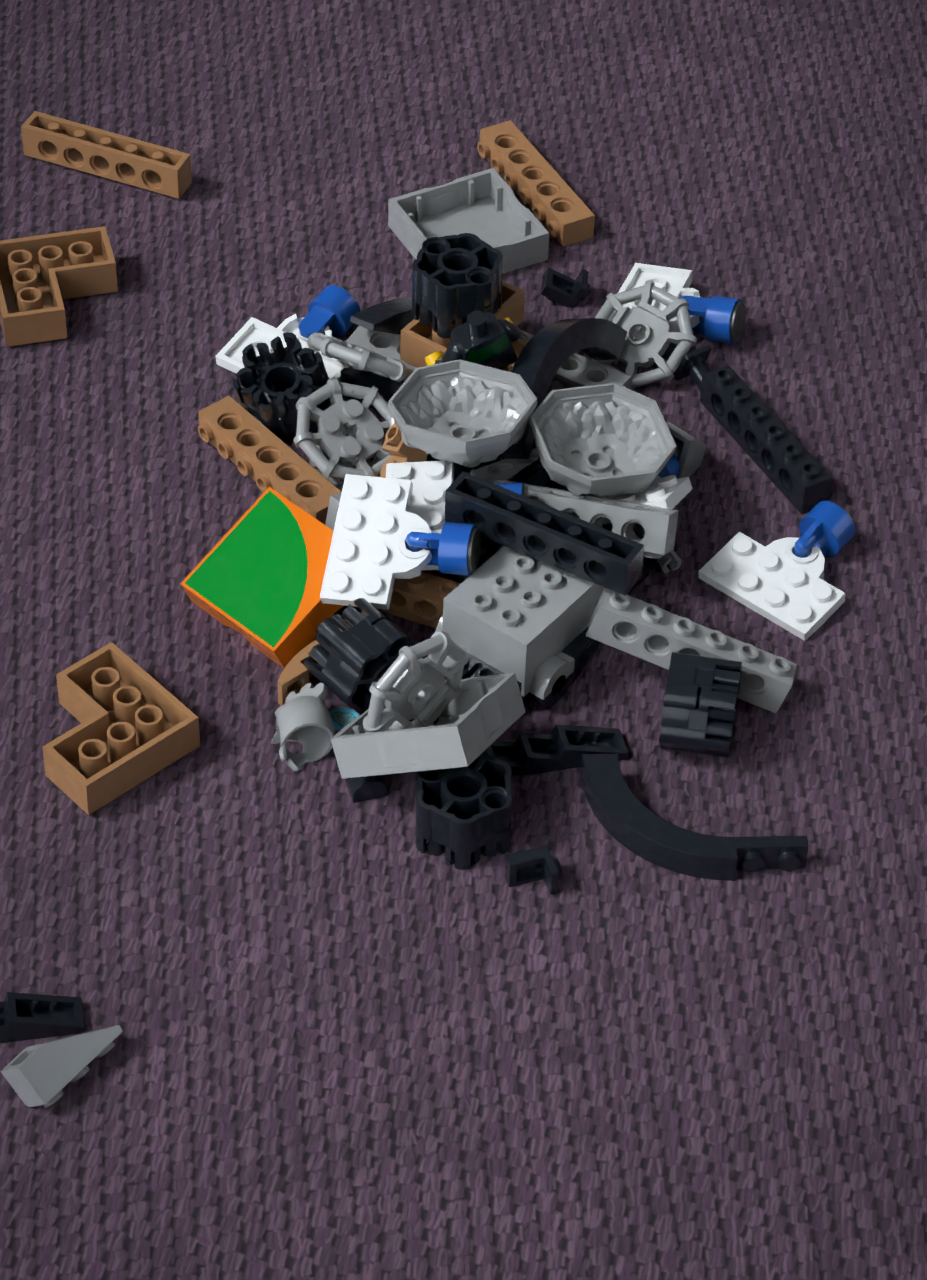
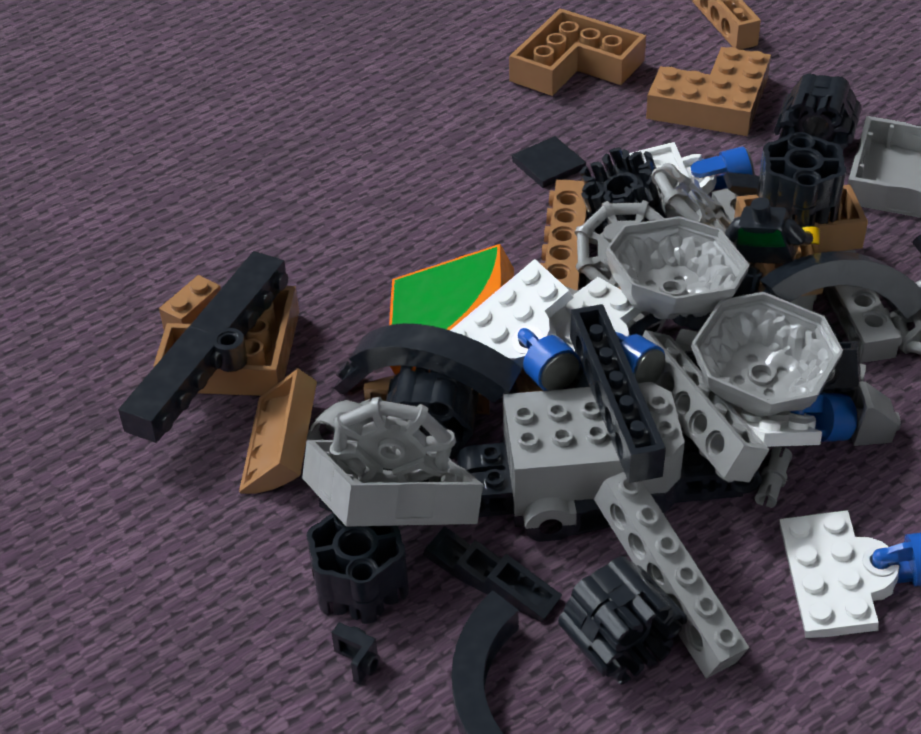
camera: 50 degrees right, 0 degrees up
(23, 727) = (189, 301): none -> medium nougat brick
(125, 733) = (208, 344): none -> black hinge
(150, 402) = (548, 161): none -> black tile
(228, 253) = (712, 101): none -> medium nougat brick
(253, 770) = (279, 434): none -> medium nougat slope
(326, 608) = (434, 350): none -> black arch
(353, 223) = (820, 108): none -> black piece

